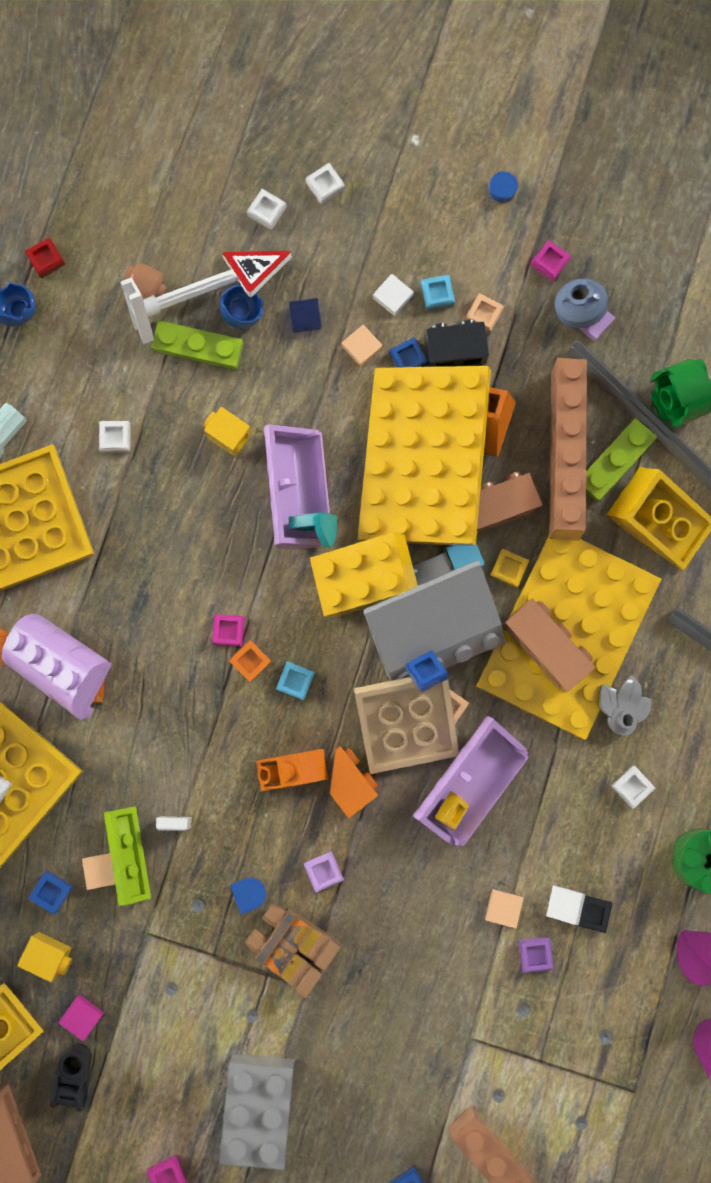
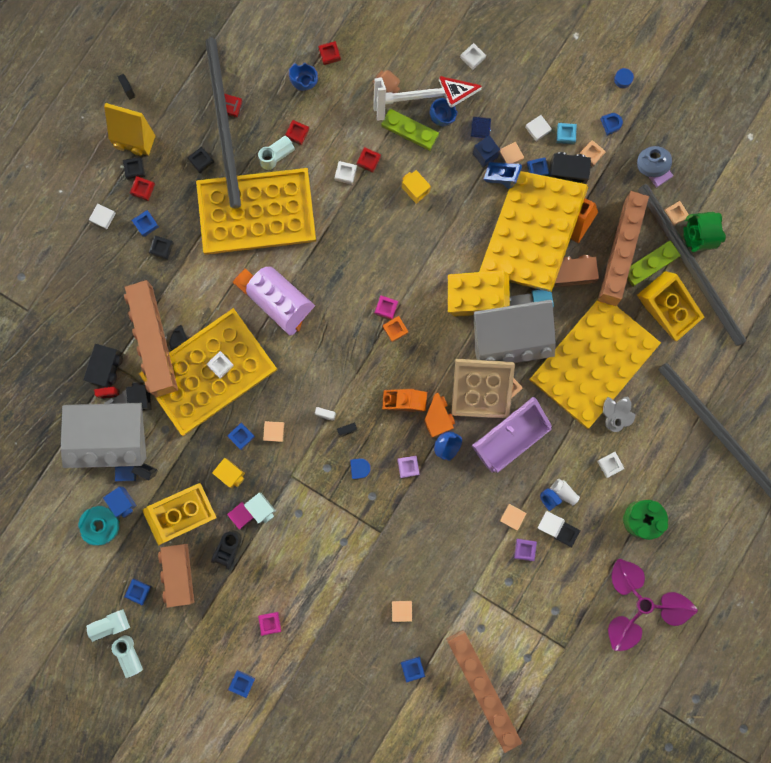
camera: 15 degrees right, 0 degrees up
(24, 392) = (297, 132): none -> red tile
(108, 1000) = (260, 508): none -> light aqua brick
(127, 856) = (292, 426): lime plate -> none
(145, 407) = (368, 159): none -> red tile
(213, 839) = (348, 429): none -> black tile
(257, 1111) = (333, 597): light grey brick -> none
(283, 946) = (373, 503): medium nougat hips -> none
(295, 482) = (450, 230): lavender container -> none
(295, 680) = (419, 348): medium azure tile -> none
(322, 350) = (486, 151): none -> dark blue brick
(323, 523) = (459, 254): teal tile -> none
(325, 183) = (513, 49): white tile -> none
(356, 379) = (502, 173): none -> blue slope
(369, 1102) = (401, 611): none -> light nougat tile
(375, 823) = (447, 445): none -> blue hair
(426, 671) = (503, 359): blue tile -> none
(452, 811) = (496, 449): yellow tile -> none
(502, 260) = (611, 123): none -> blue tile
(509, 568) = (568, 313): yellow tile -> none
(549, 645) = (581, 363): nougat brick -> none
(550, 260) = (642, 131): dark pink tile -> none
(554, 866) = (550, 499): none -> blue tile
(572, 849) = (565, 492): none -> white cone
(634, 373) = (676, 213): none -> light nougat tile

